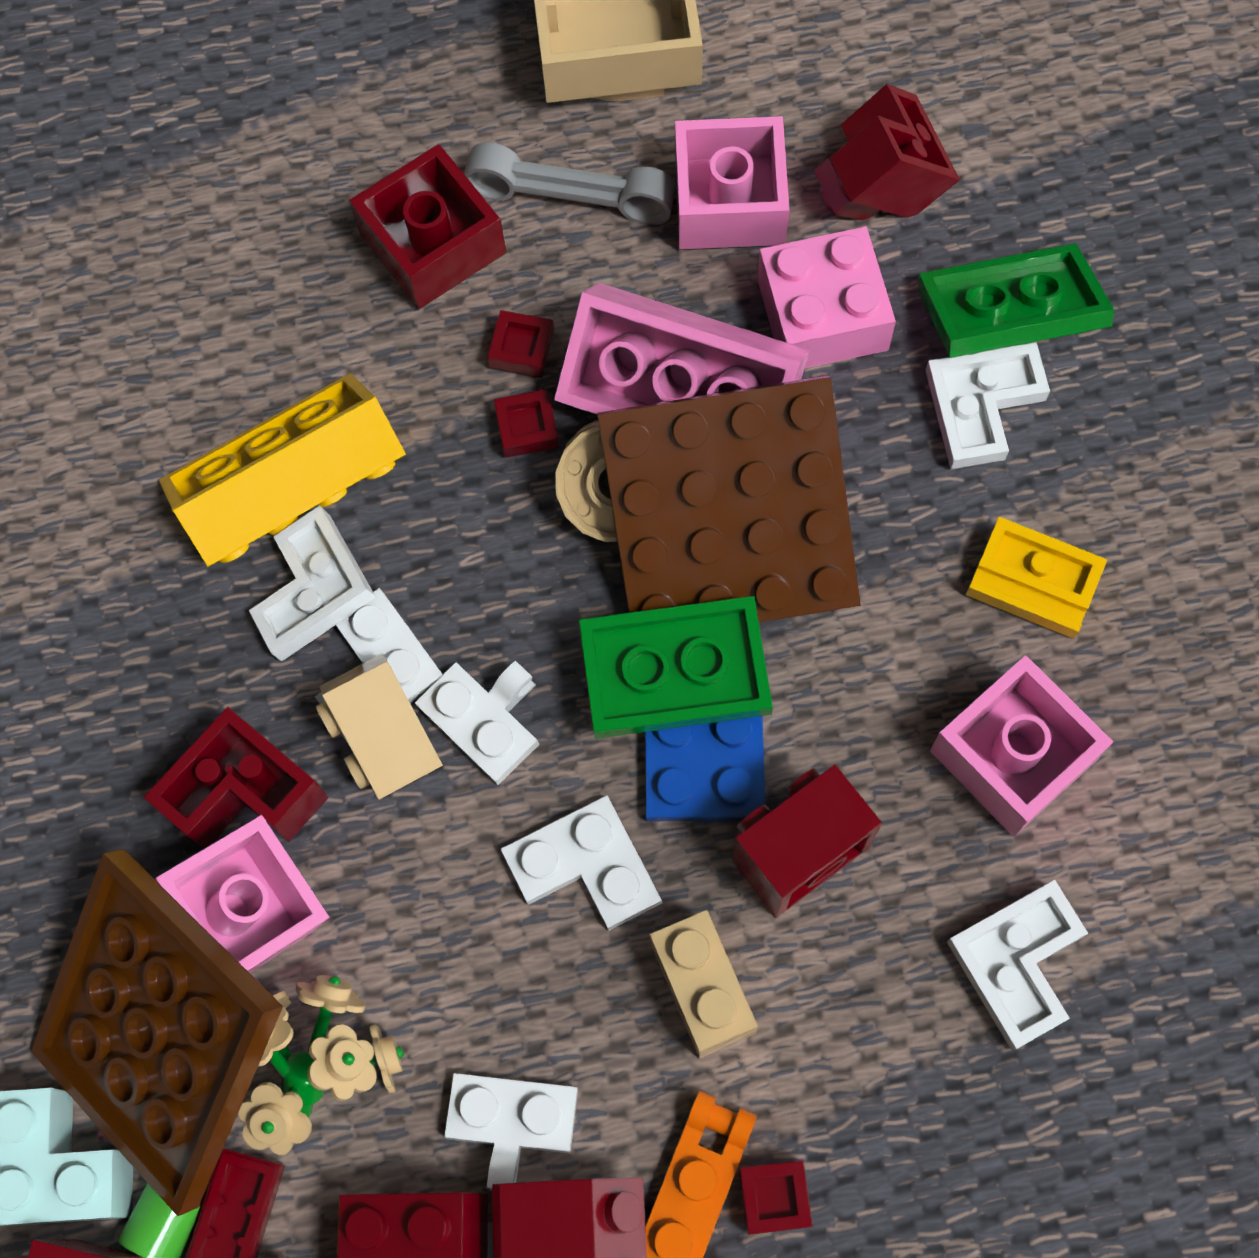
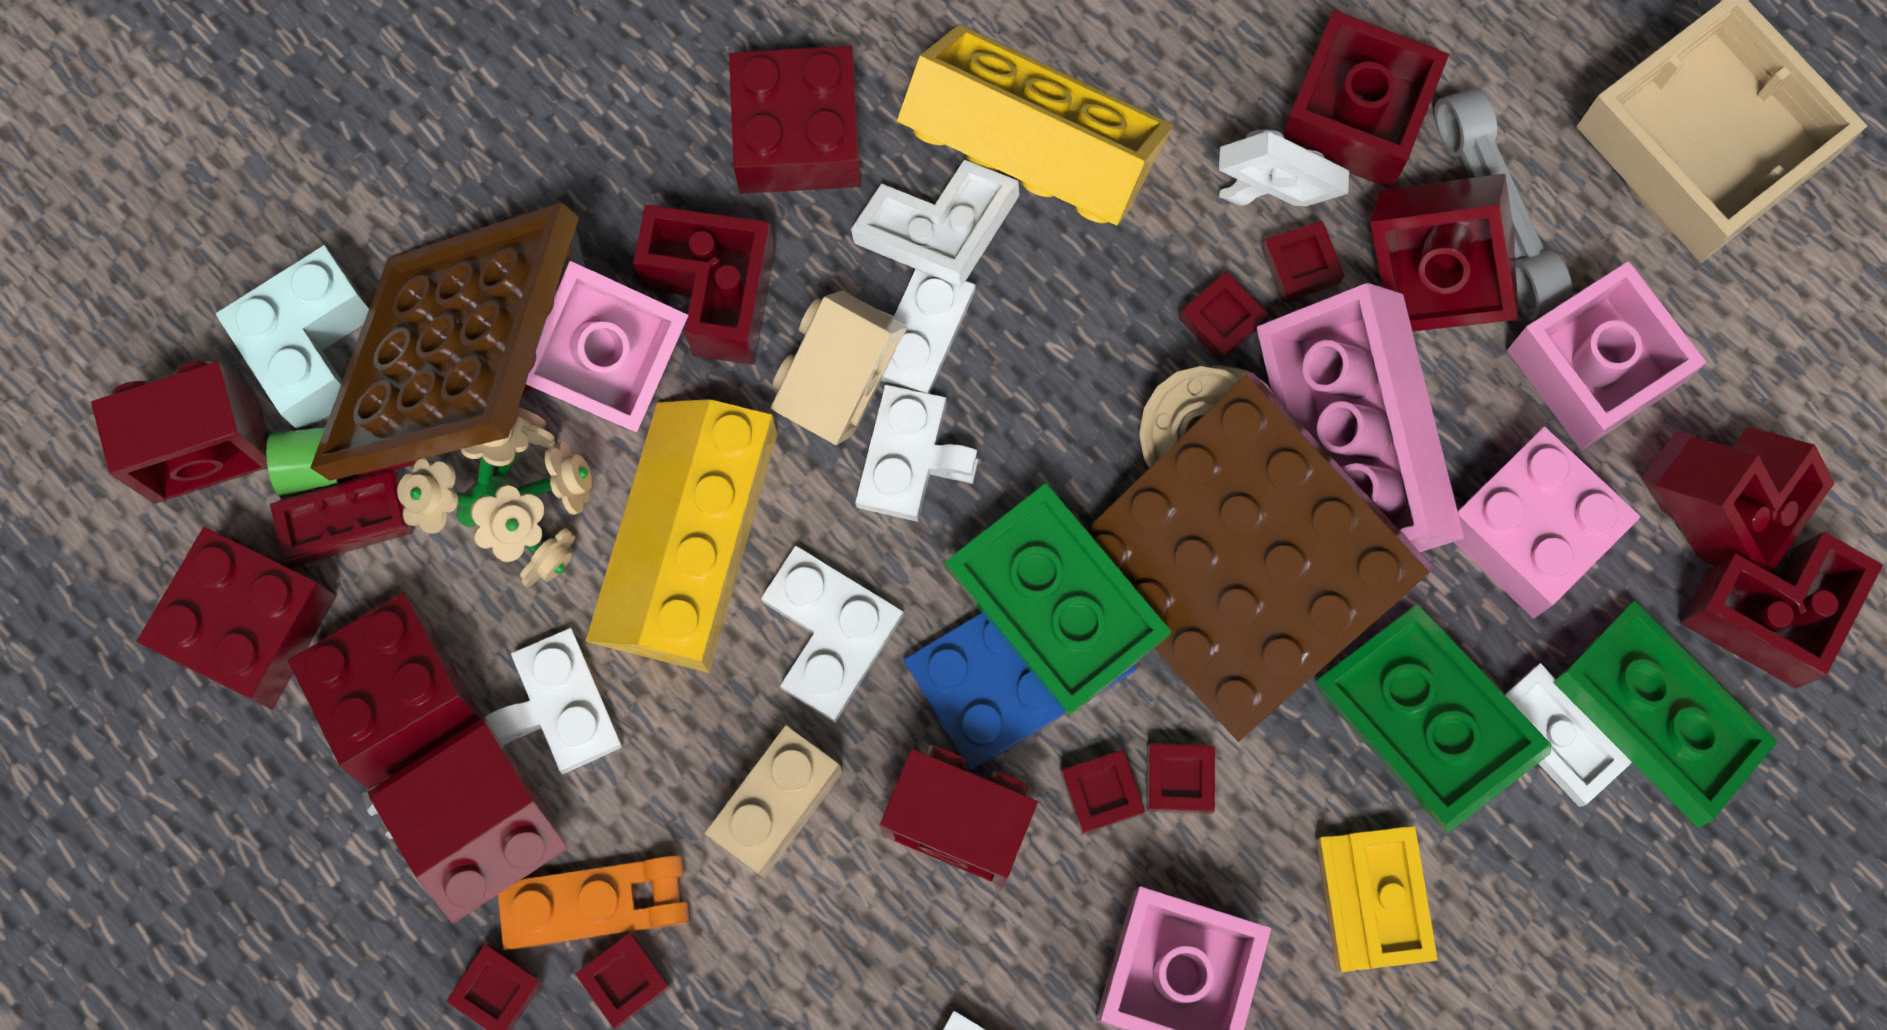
camera: 55 degrees right, 5 degrees up
(150, 643) = (794, 120): none -> dark red brick
(431, 934) = (684, 532): none -> yellow slope
(442, 312) = (1280, 168): none -> white plate
(584, 234) = (1449, 251): none -> dark red slope
(841, 727) = (1102, 792): none -> dark red plate
(864, 663) = (1180, 779): none -> dark red plate
(928, 454) = (1433, 718): none -> green plate
(994, 181) = (1790, 621): none -> dark red brick

